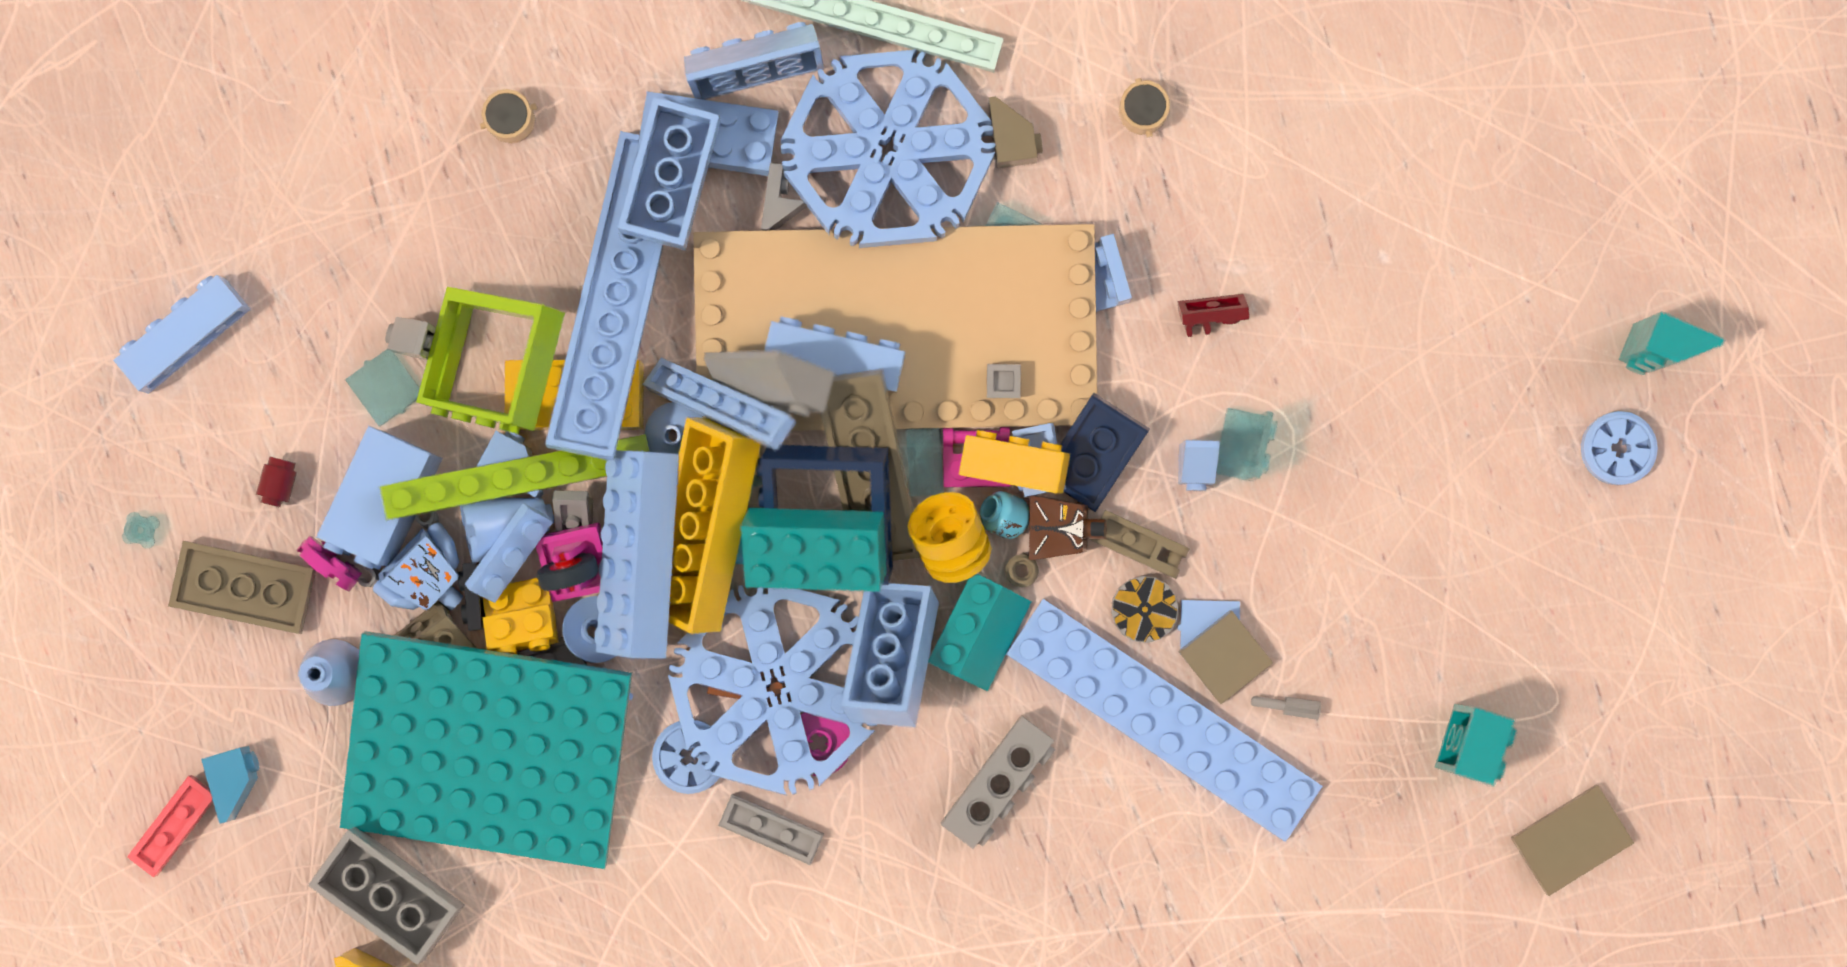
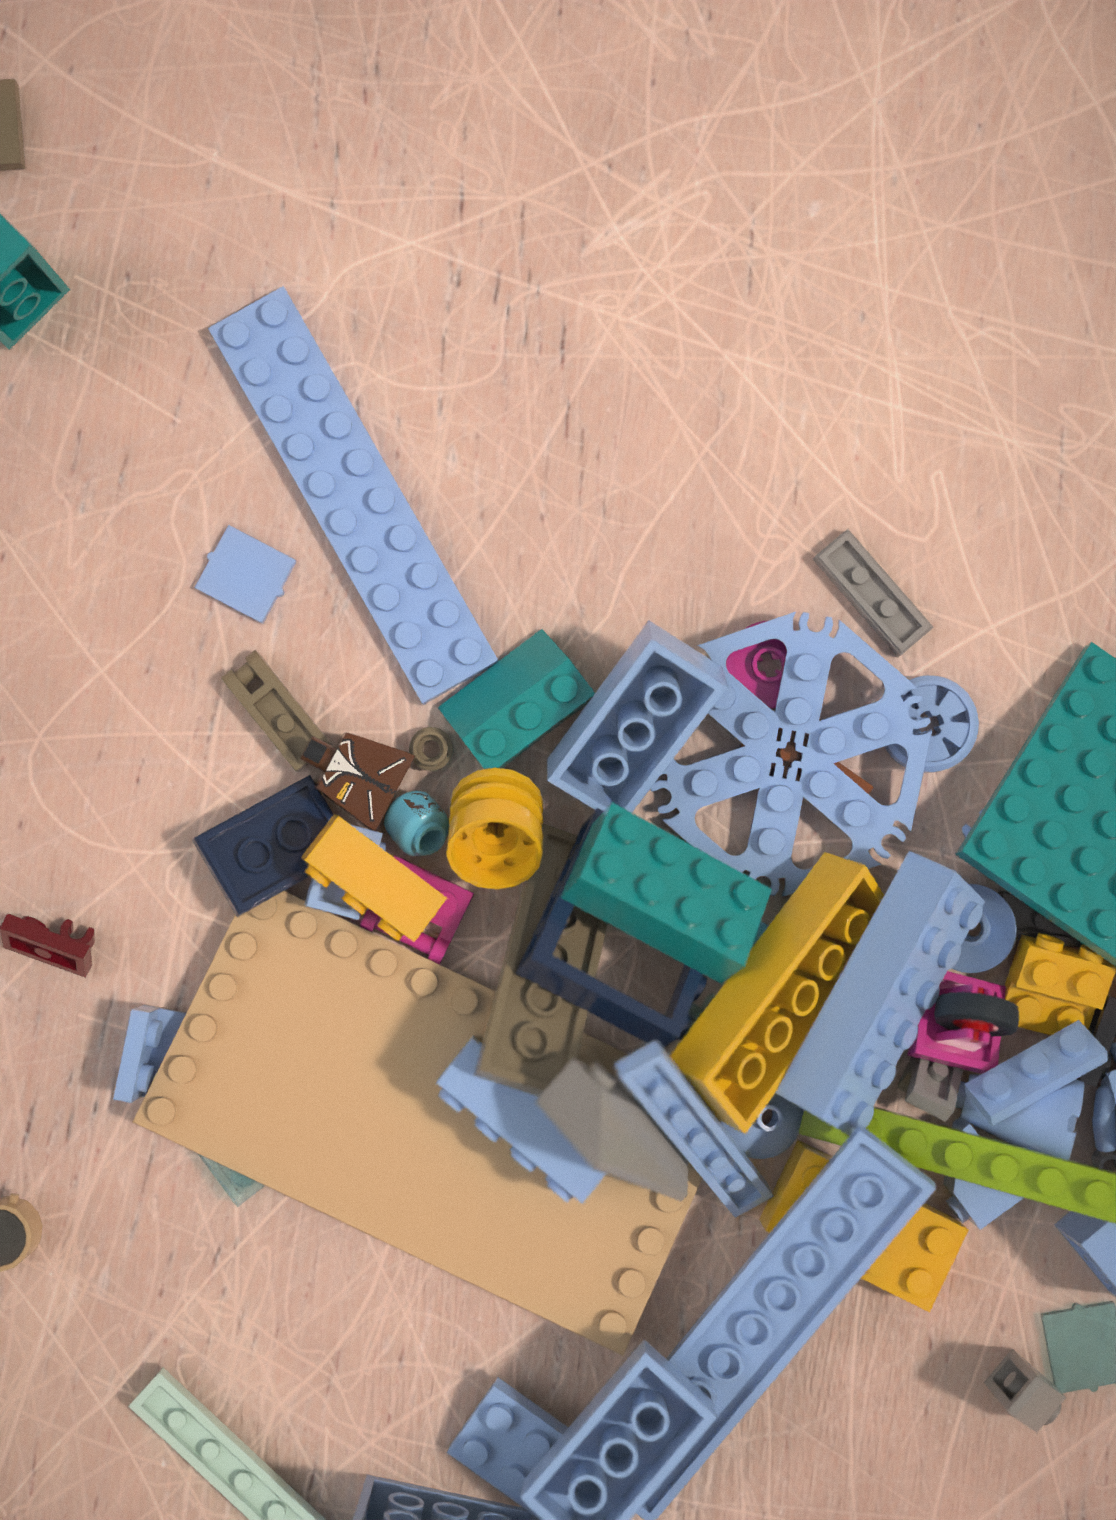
camera: 160 degrees left, 0 degrees up
(447, 350) = (990, 1355): lime window -> none
(778, 209) = (507, 1331): light grey slope -> none
(907, 171) = (325, 1301): light blue plate -> none
(924, 461) = (481, 934): clear light blue plate -> none
(976, 831) = (632, 470): light grey brick -> none
(1003, 380) = (337, 985): light grey plate -> none
(1012, 136) = (178, 1278): dark tan slope -> none
(1144, 609) = (310, 632): tile -> none
(1197, 464) = (157, 771): light blue slope -> none
(1225, 657) = (243, 530): dark tan tile -> none
(1245, 444) = (89, 765): clear light blue bracket -> none
(1290, 706) = (197, 437): light grey axle -> none

